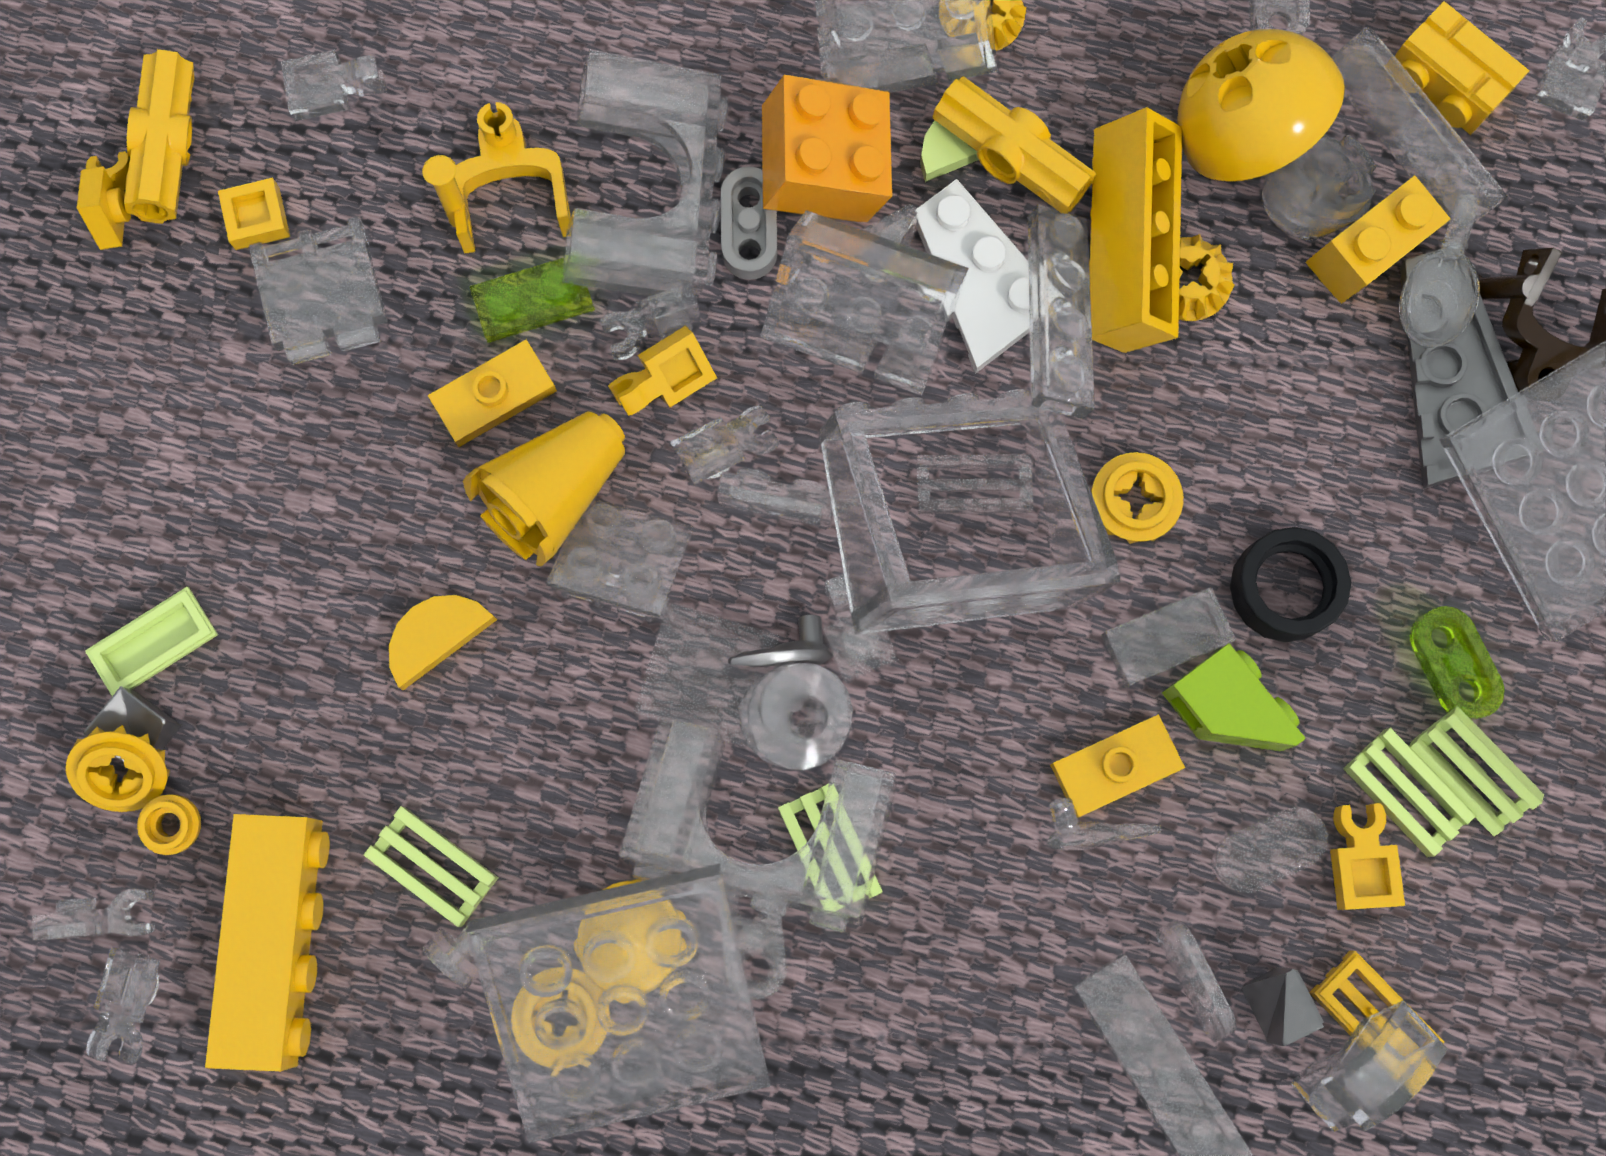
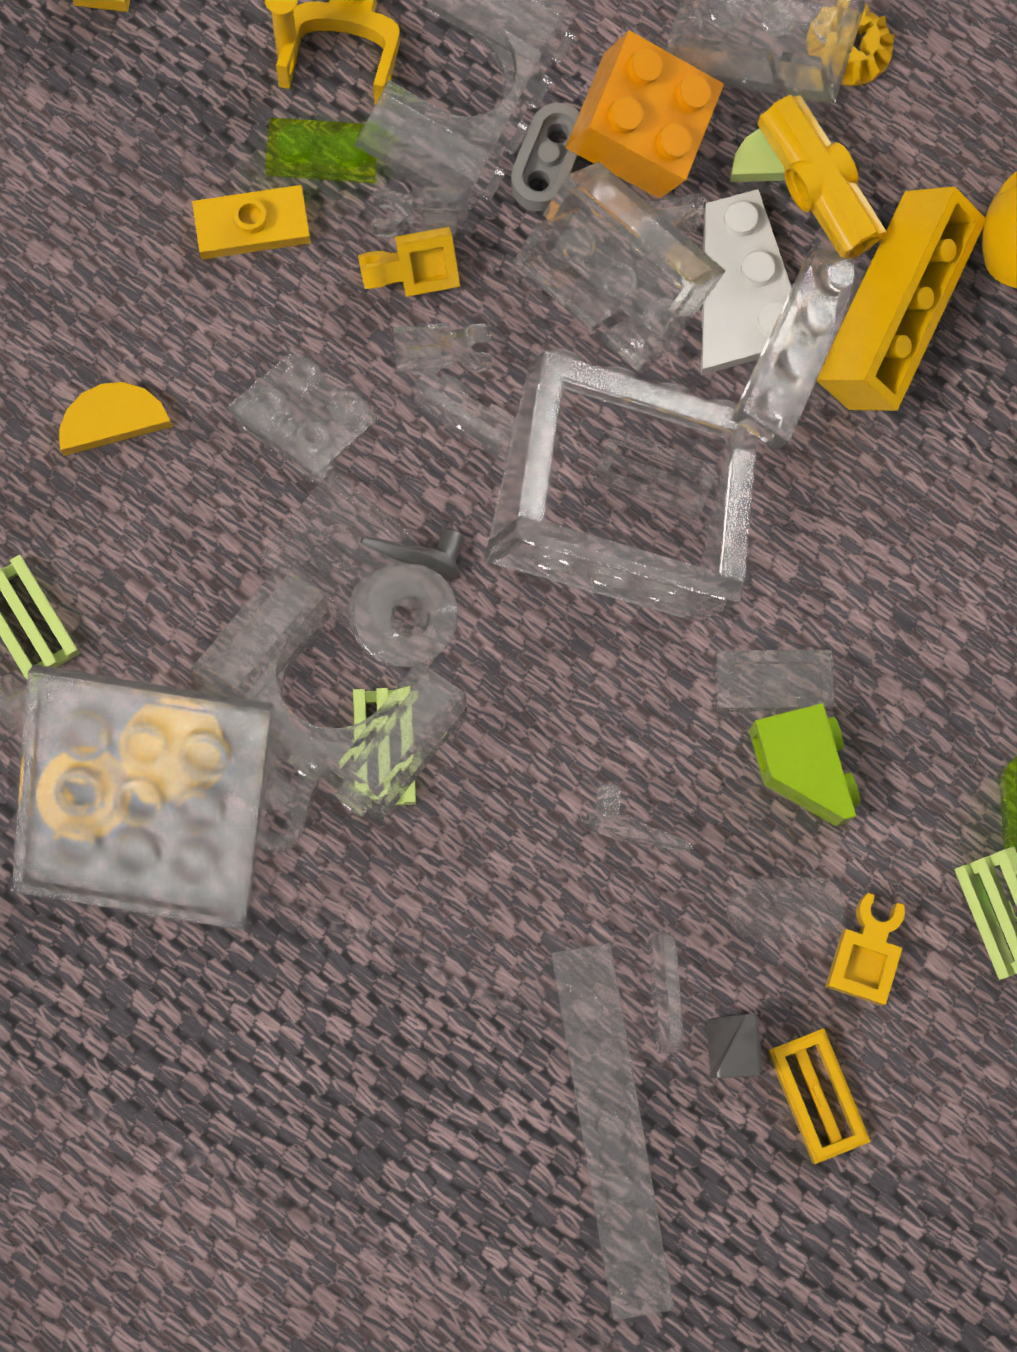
camera: 20 degrees right, 0 degrees up
(320, 292) = (134, 72): clear plate -> none
(547, 483) = (265, 319): yellow cone -> none
(853, 653) = (483, 581): clear plate -> none
(1117, 765) = (677, 777): yellow plate -> none
(1156, 482) = (826, 540): yellow gear -> none
(1216, 278) = (964, 372): yellow gear -> none
(1326, 560) = (933, 642): black tyre -> none
(1374, 1071) = (788, 1130): clear brick -> none
(1425, 776) = (958, 899): yellowish green tile -> none

